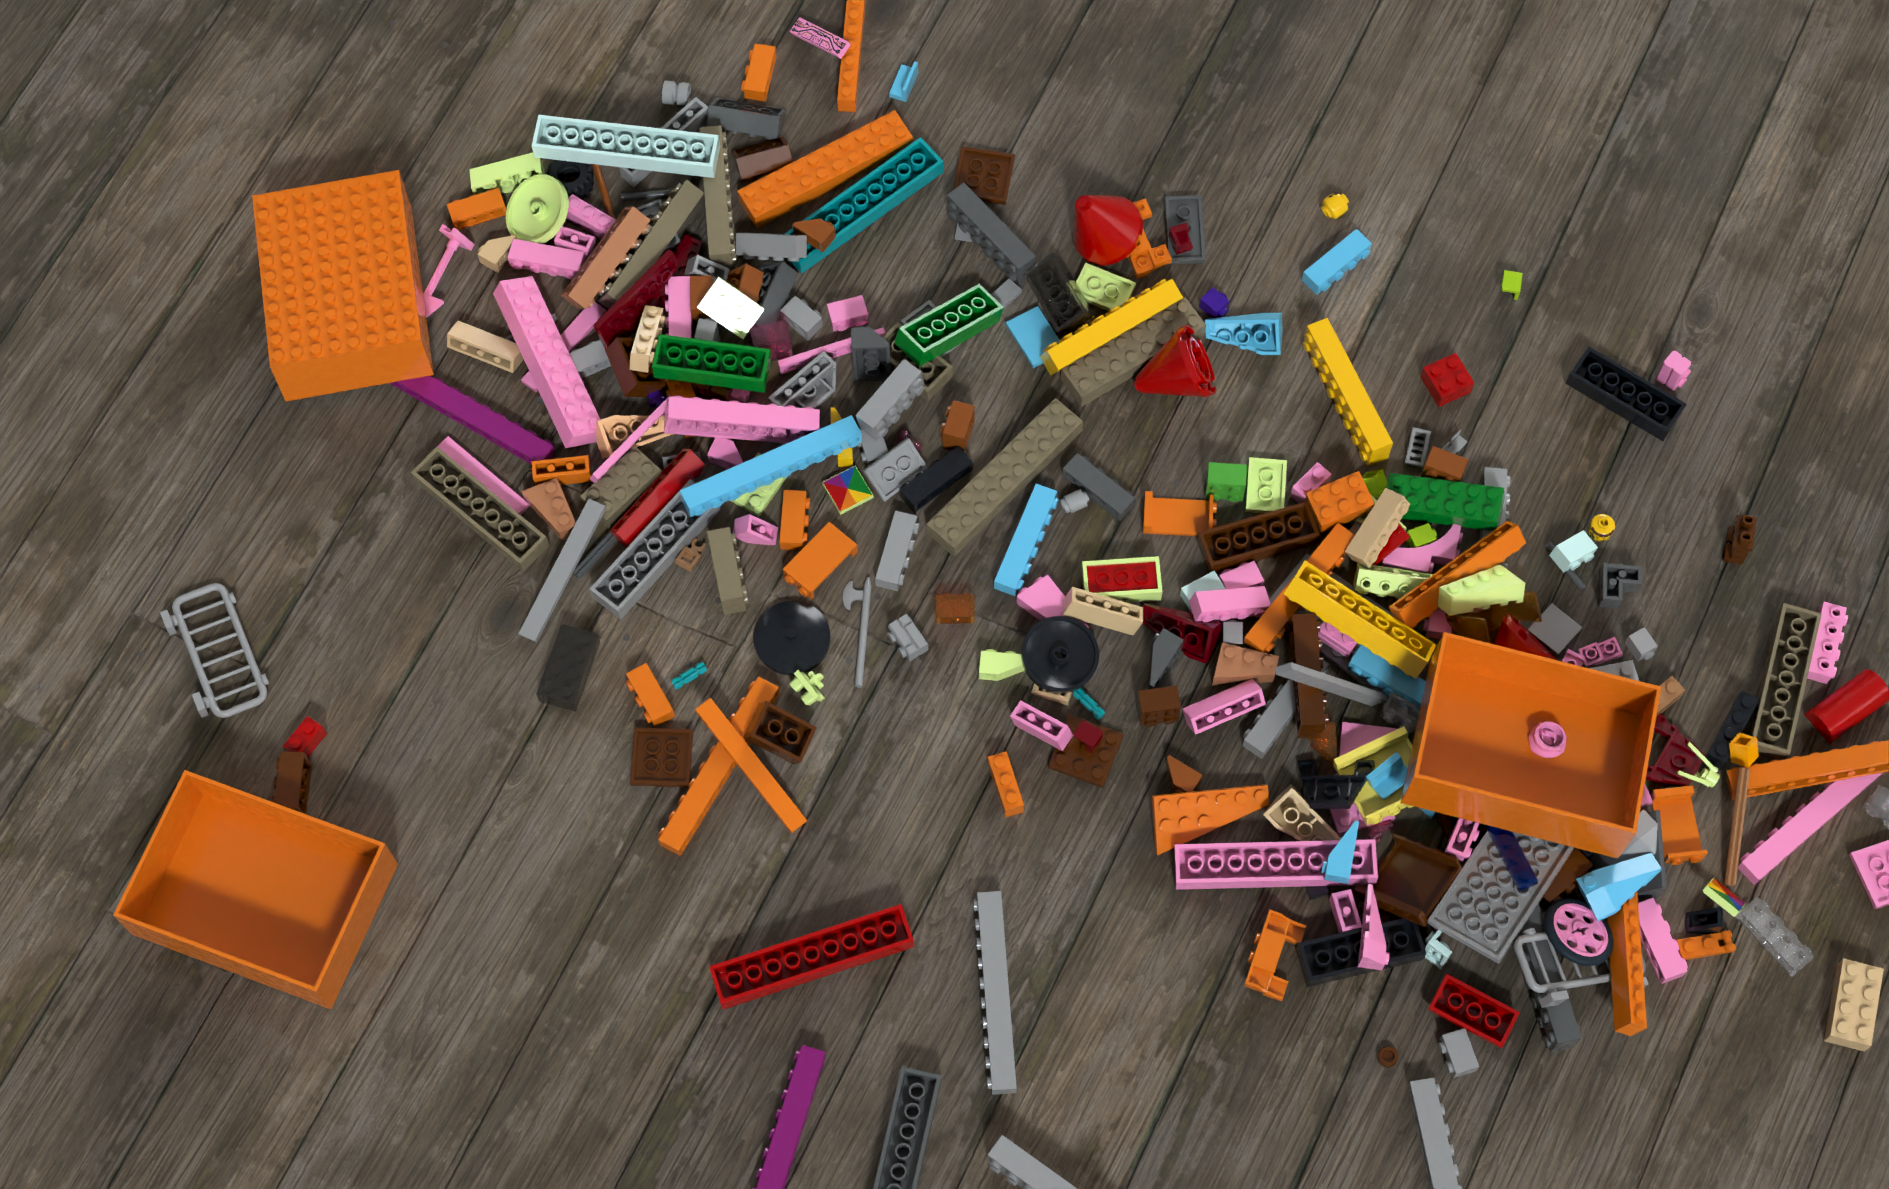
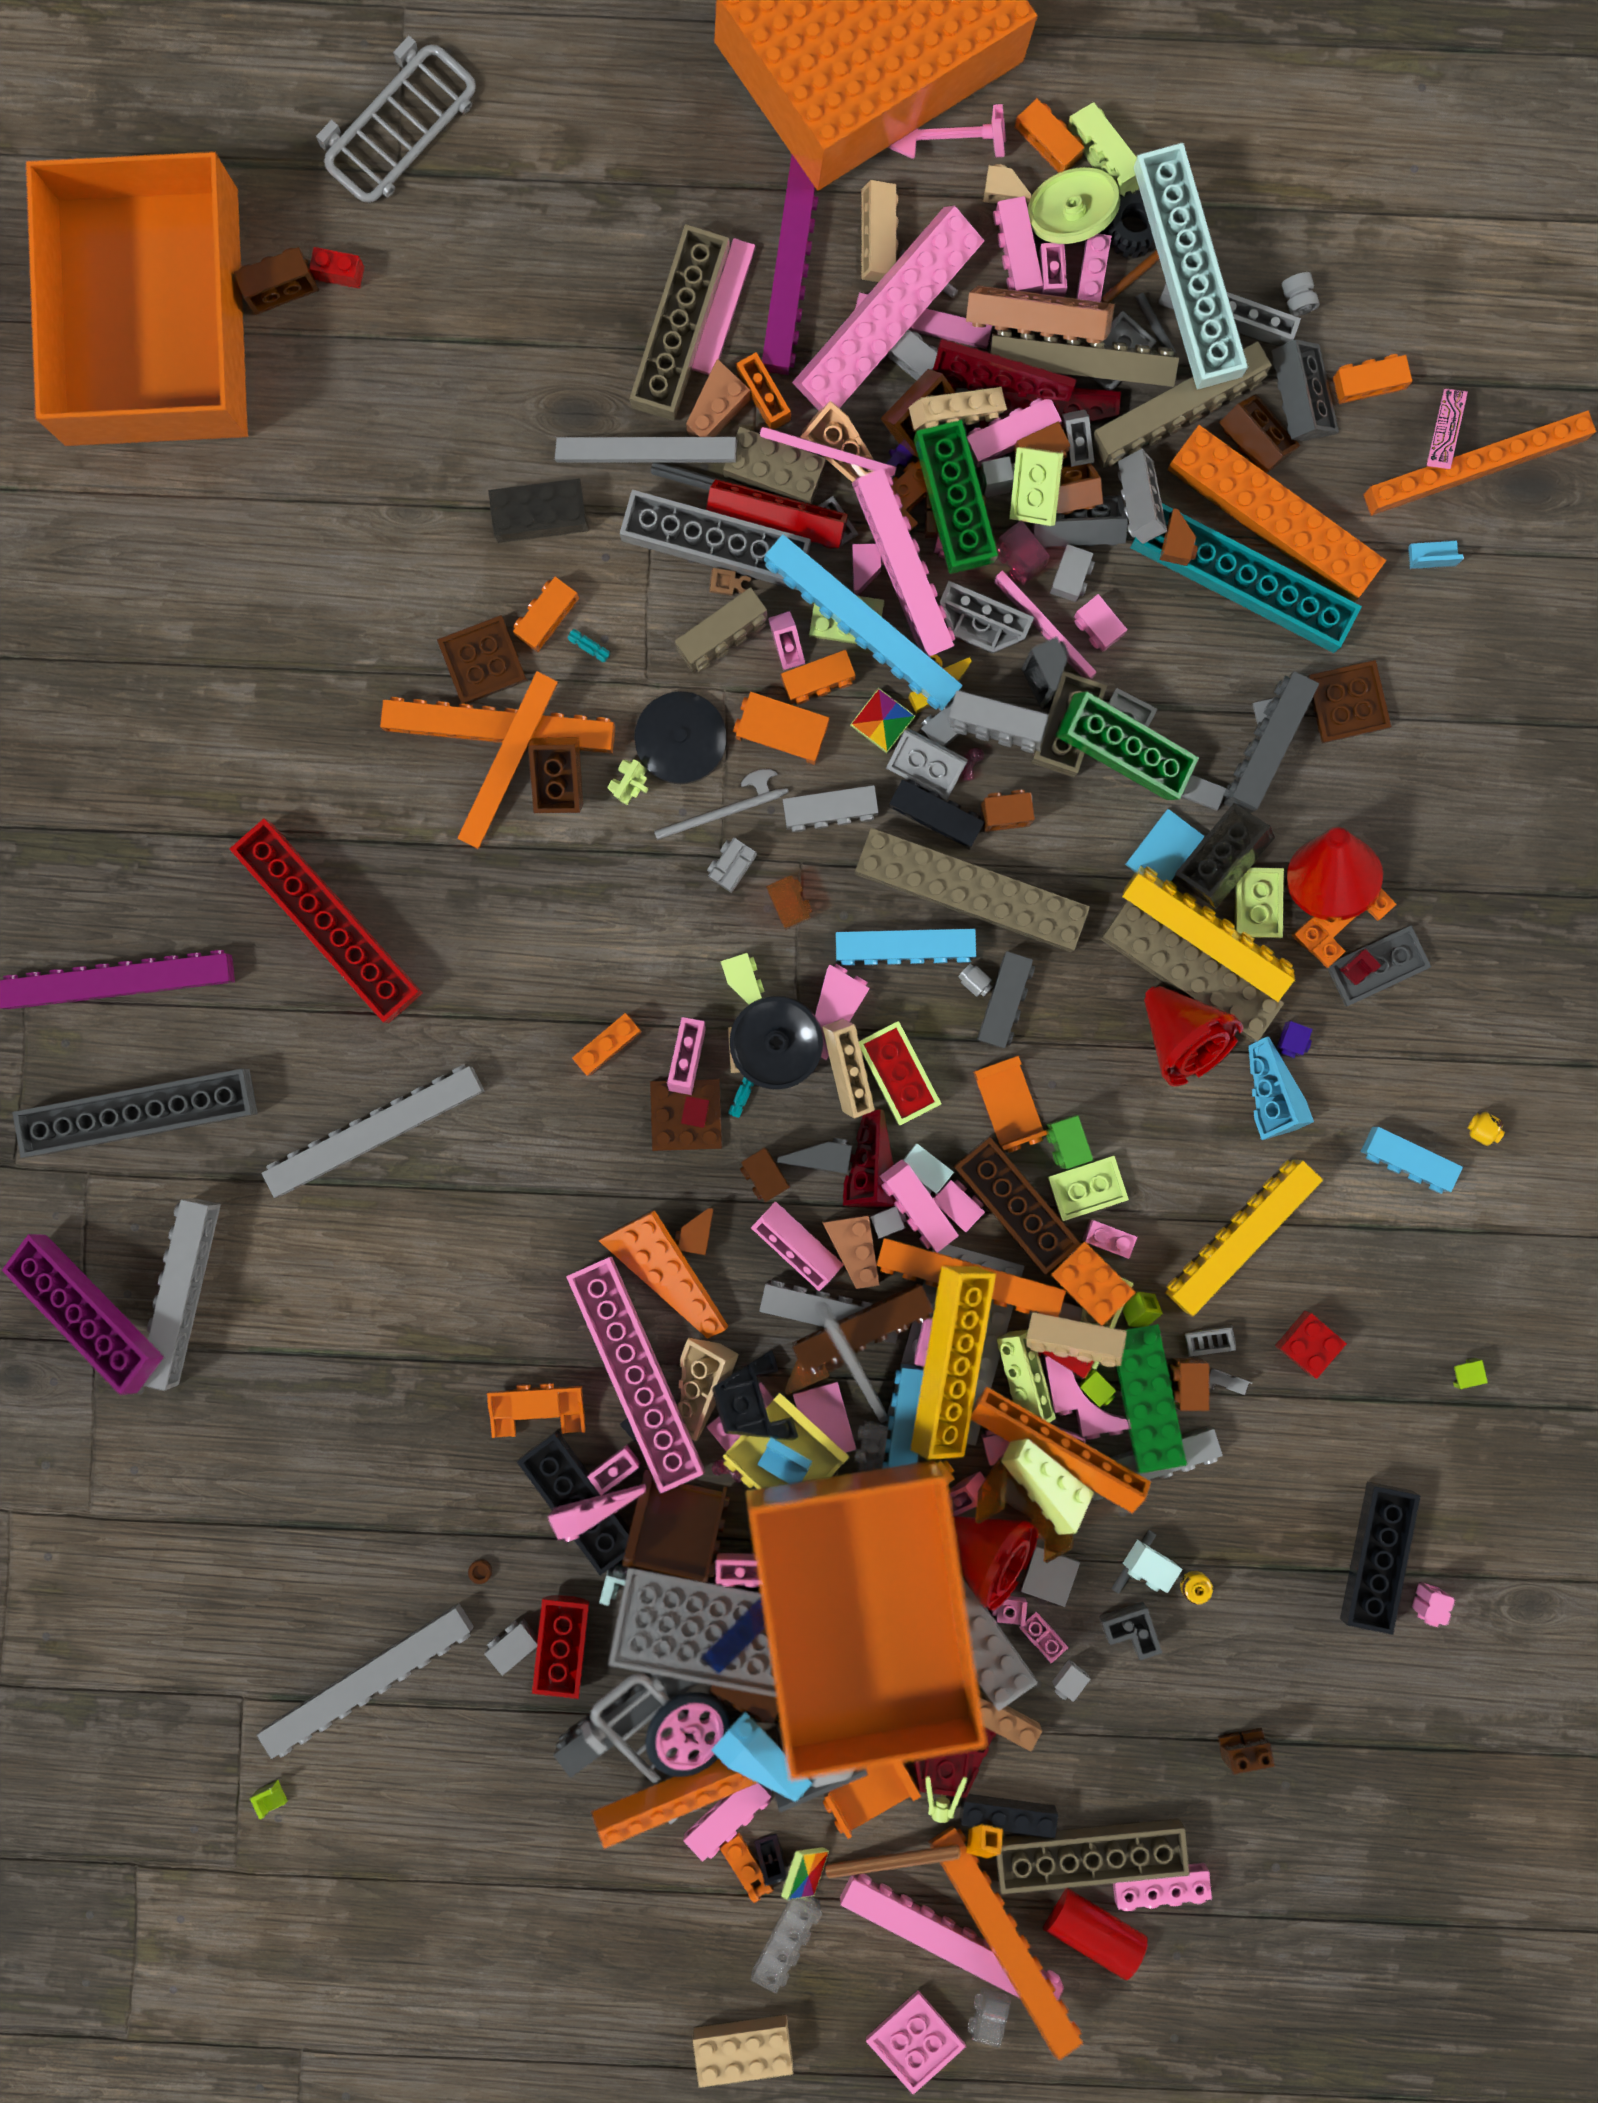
camera: 70 degrees right, 20 degrees up
(1340, 860) = (660, 1447): medium azure slope -> none
(1547, 739) = (891, 1626): bright pink hat -> none

